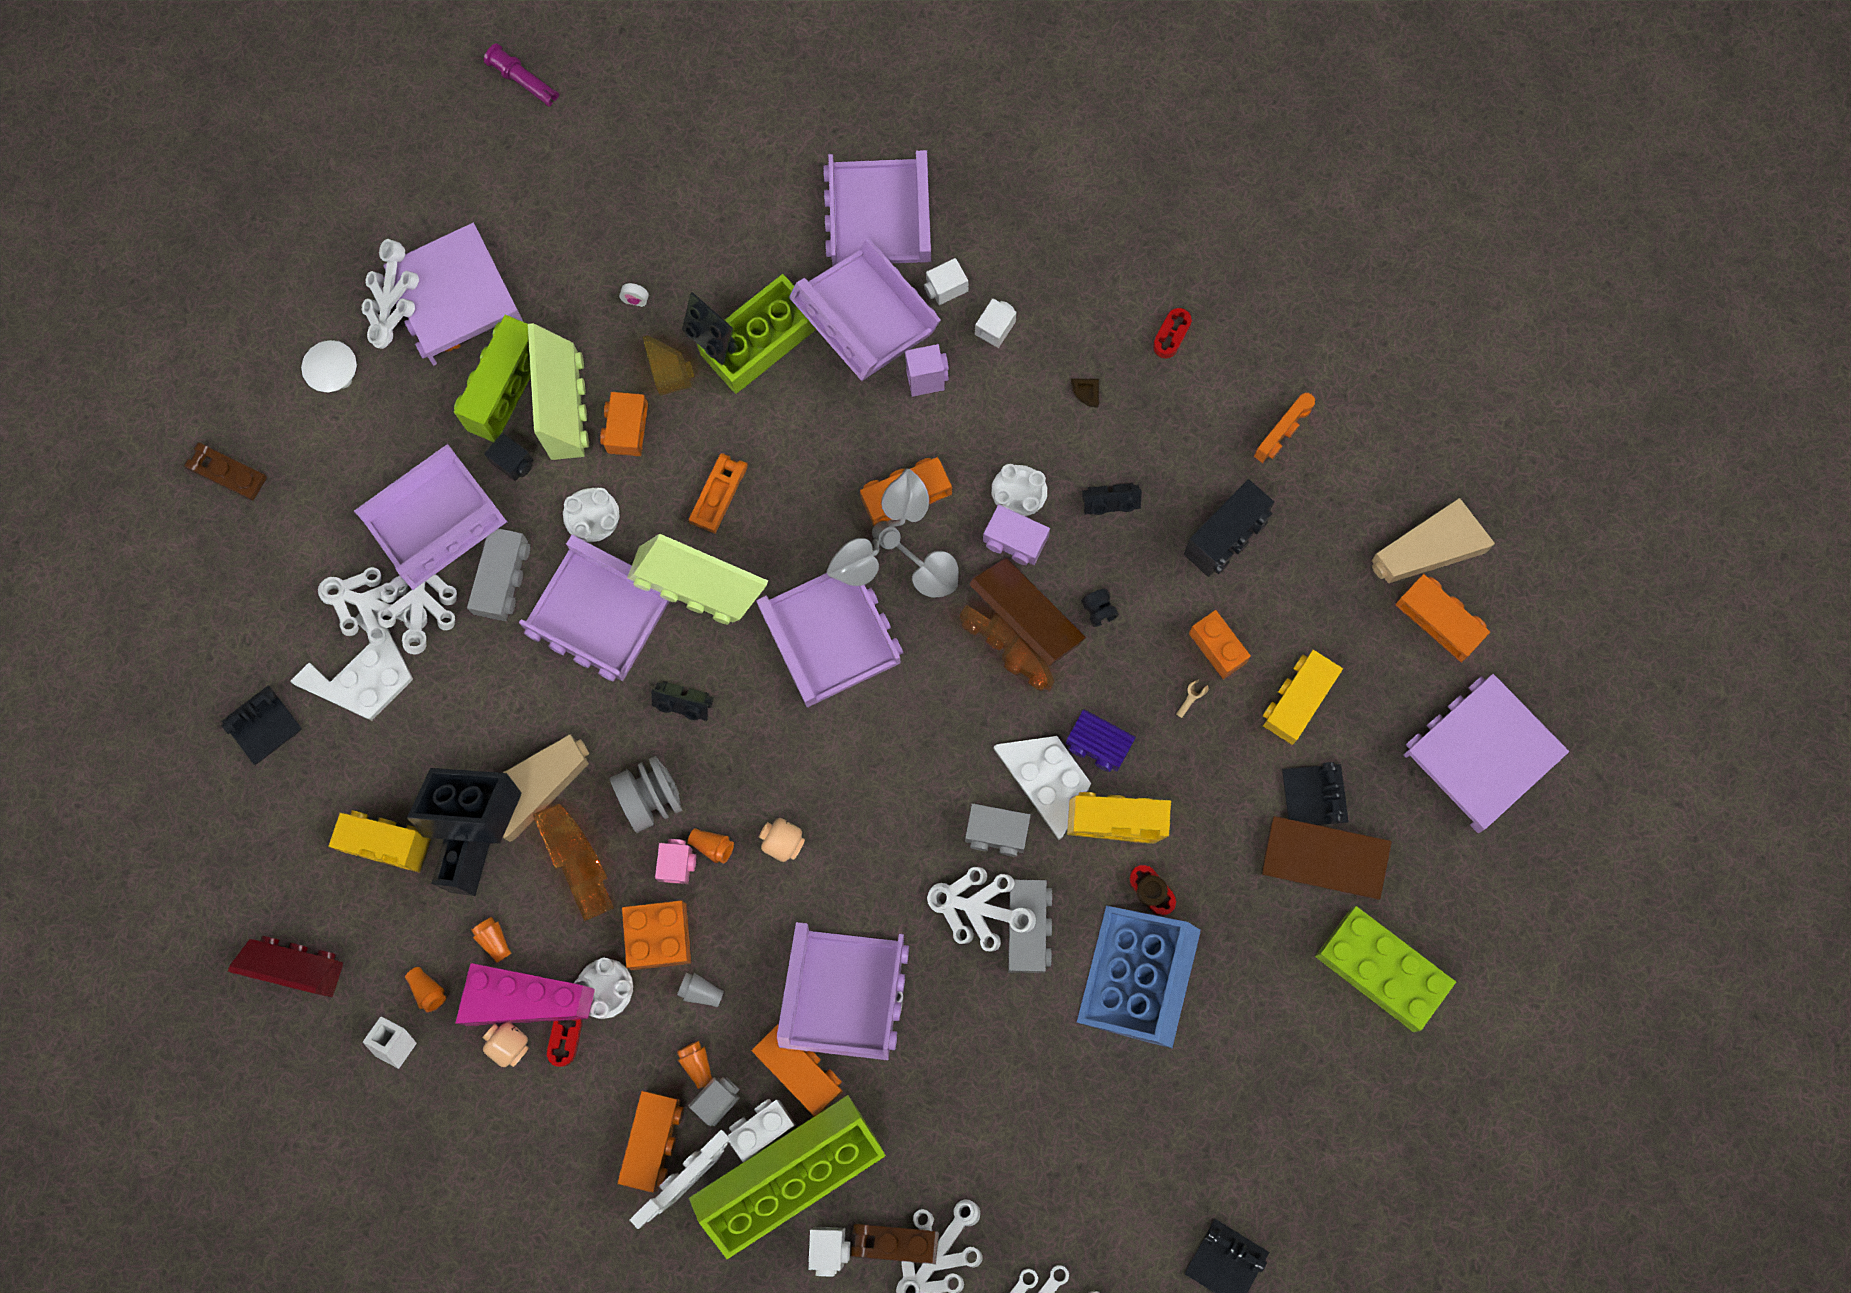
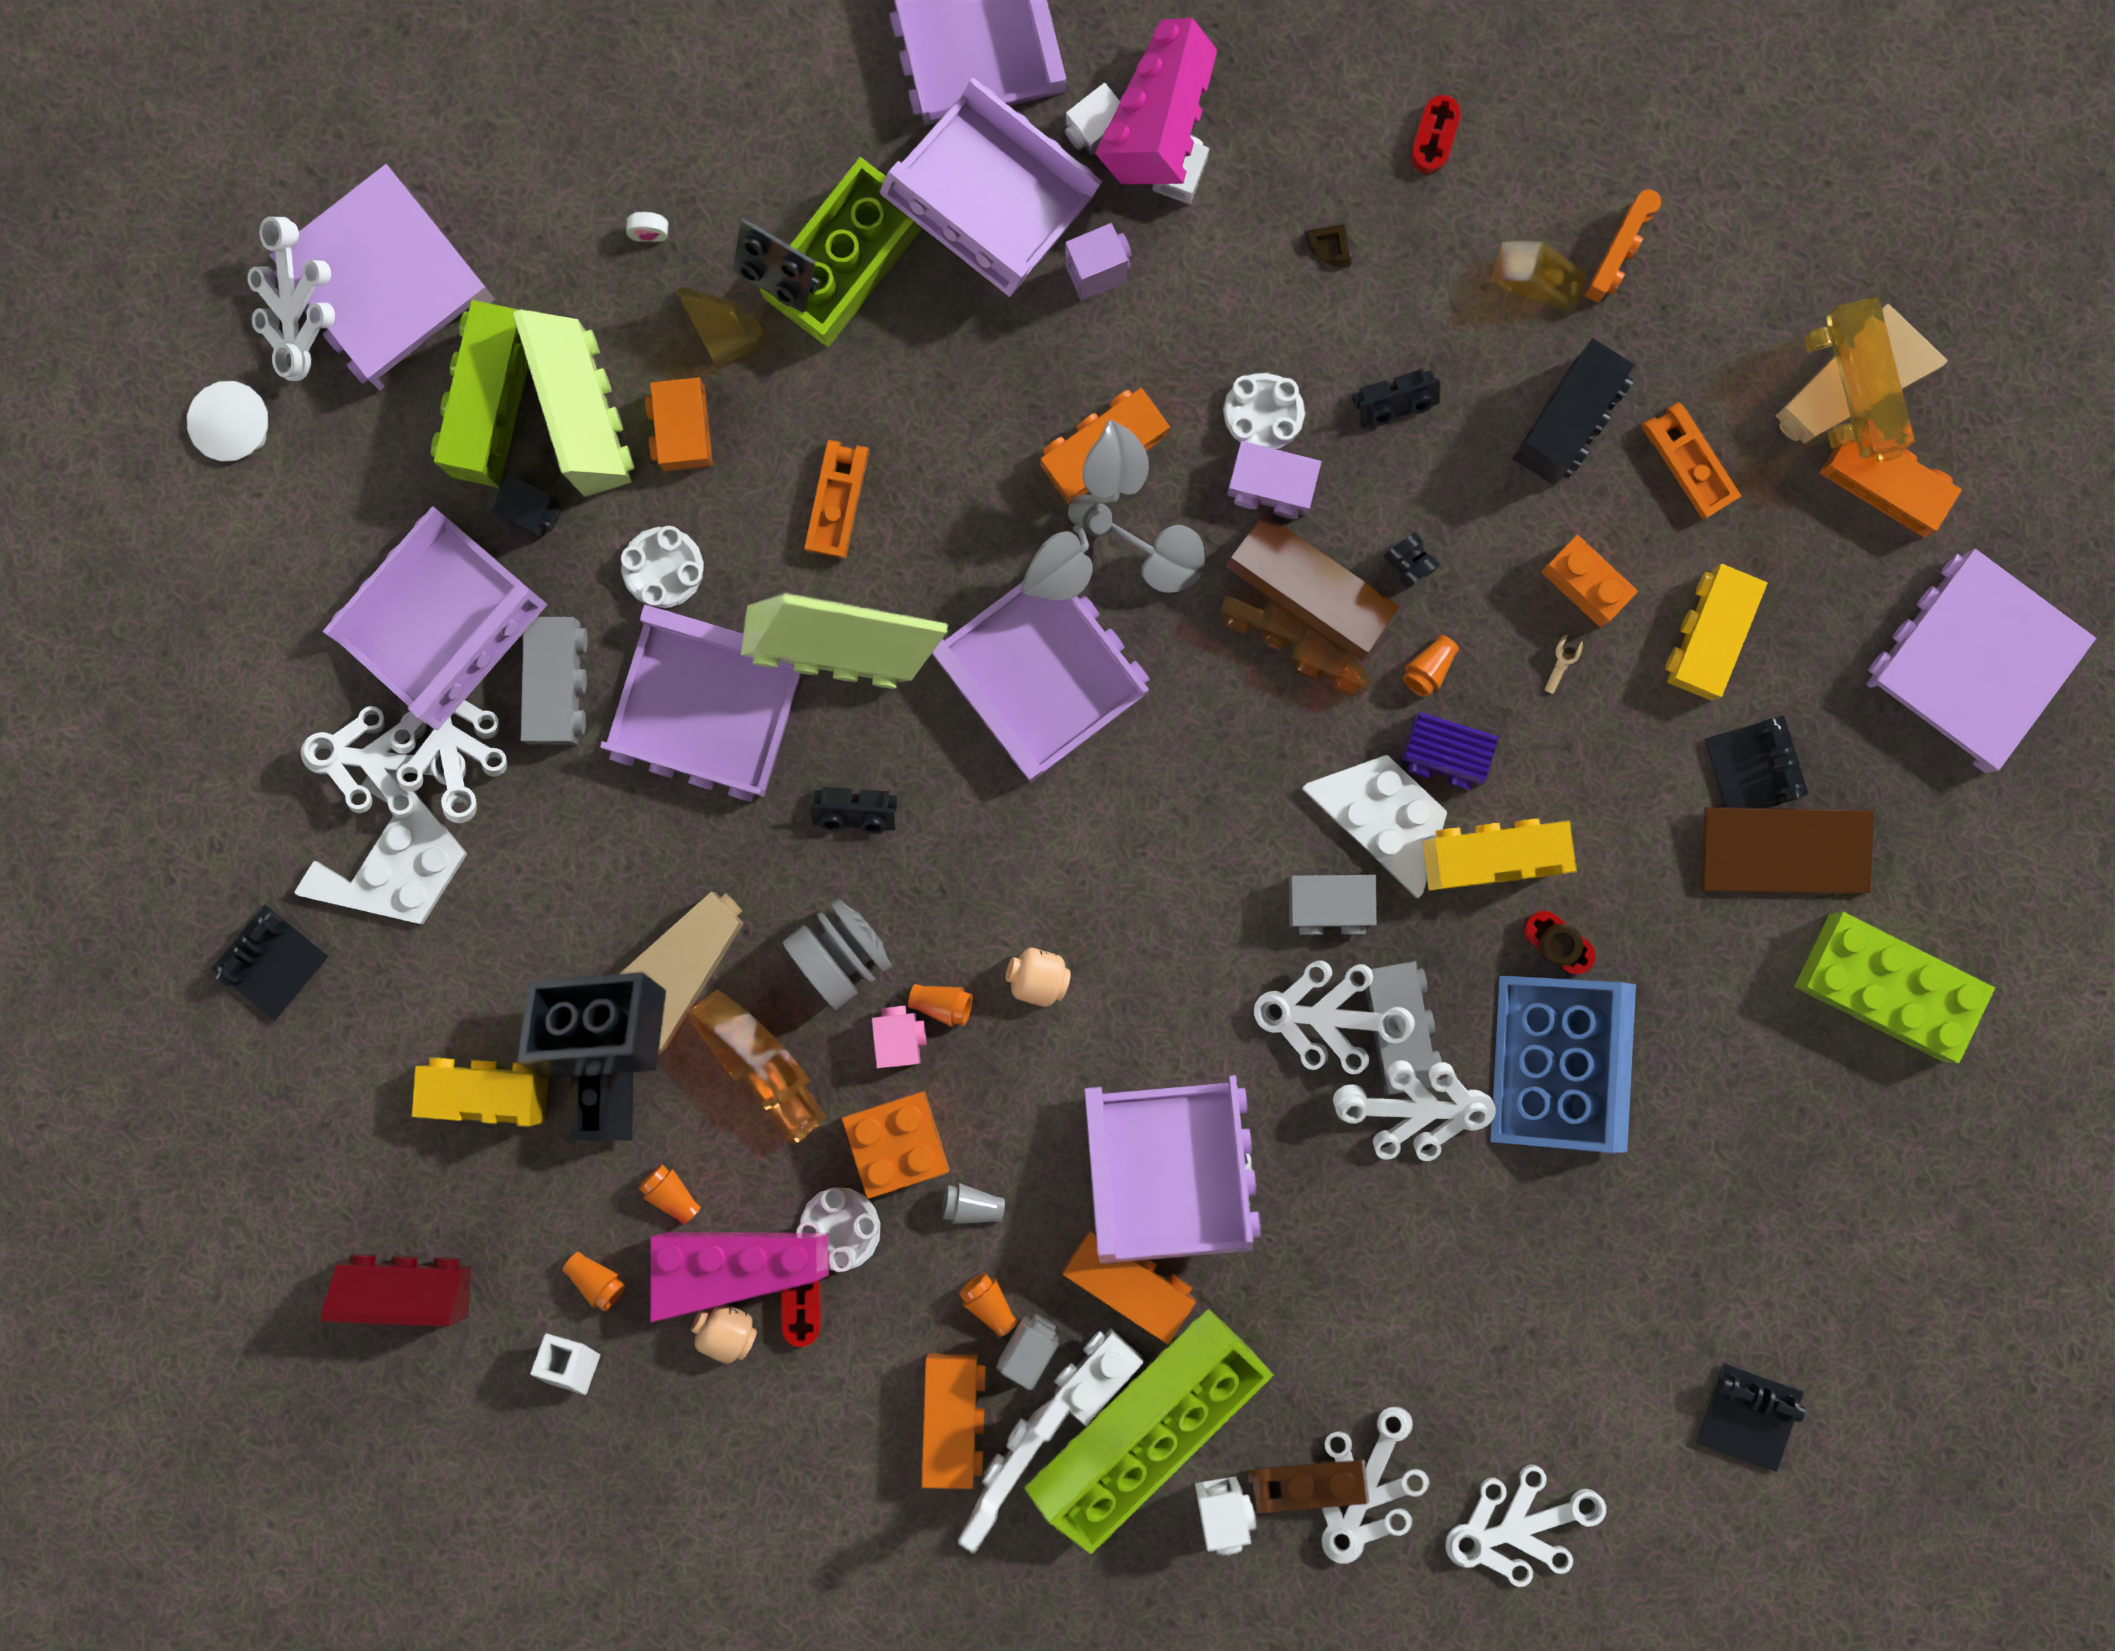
camera: 15 degrees left, 10 degrees up
(226, 472) = (120, 607): reddish brown plate -> none
(988, 278) = (1160, 106): none -> dark pink wedge
(1029, 987) = (1419, 1111): none -> white plant
(1097, 683) = (1430, 667): none -> orange cone
(1224, 435) = (1538, 274): none -> clear yellow slope
(1307, 579) = (1692, 461): none -> orange plate
(1436, 544) = (1868, 380): none -> clear yellow brick

